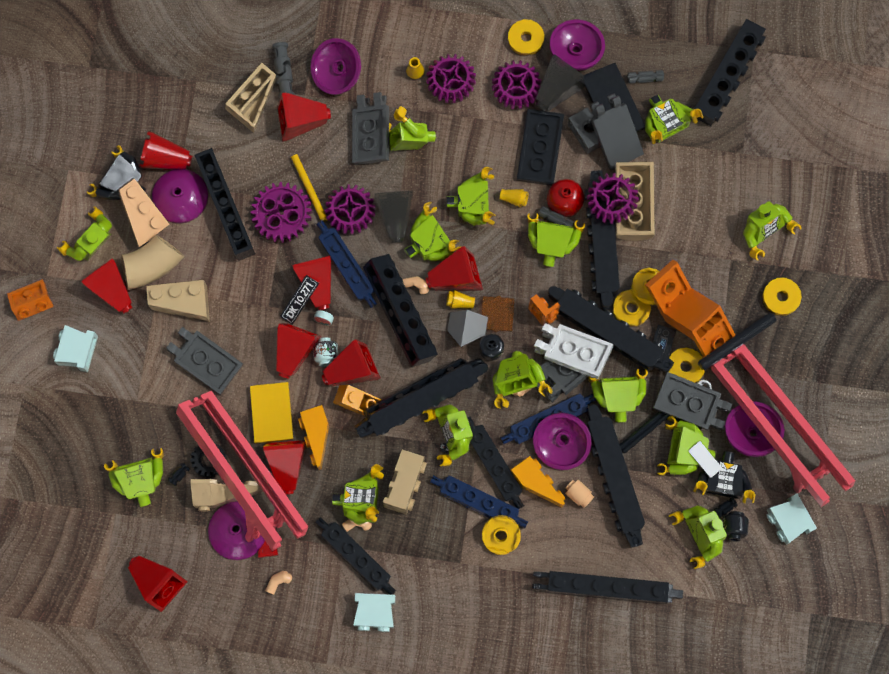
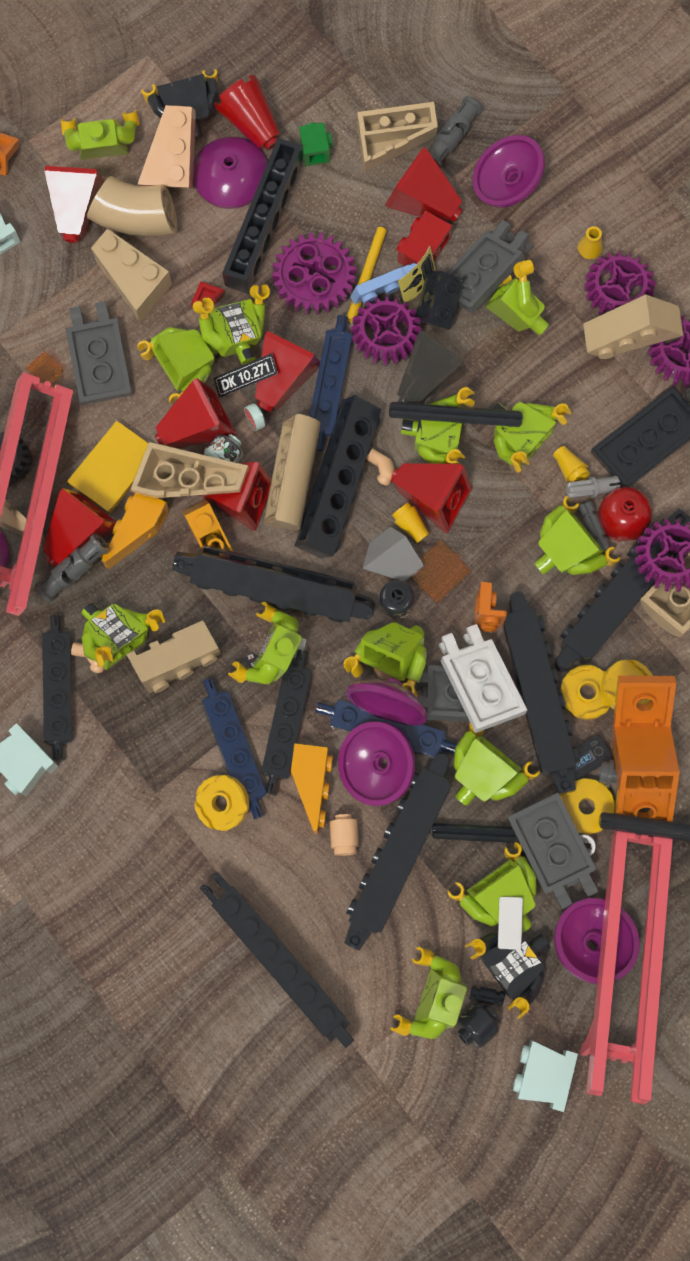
camera: 45 degrees right, 0 degrees up
(181, 393) = (45, 368): none -> clear orange tile
(214, 139) = (315, 144): none -> green brick
(233, 275) = (208, 291): none -> red tile
(254, 319) = (181, 355): none -> lime torso
(268, 277) = (235, 326): none -> torso
(305, 484) = (72, 568): none -> dark grey piece
(319, 381) = (184, 473): none -> tan wedge
(325, 144) = (425, 232): none -> red brick
(328, 183) = (385, 283): none -> light blue hinge
(342, 167) = (413, 282): none -> light yellow sticker
(363, 168) = (439, 299): none -> black bracket
(374, 330) = (292, 472): none -> tan brick
(432, 222) = (455, 414): none -> black axle
(480, 96) = (632, 327): none -> tan wedge
(536, 198) = (591, 487): none -> light grey axle
(541, 402) = (387, 701): none -> magenta dish
(681, 339) = (607, 773): none -> dark grey plate

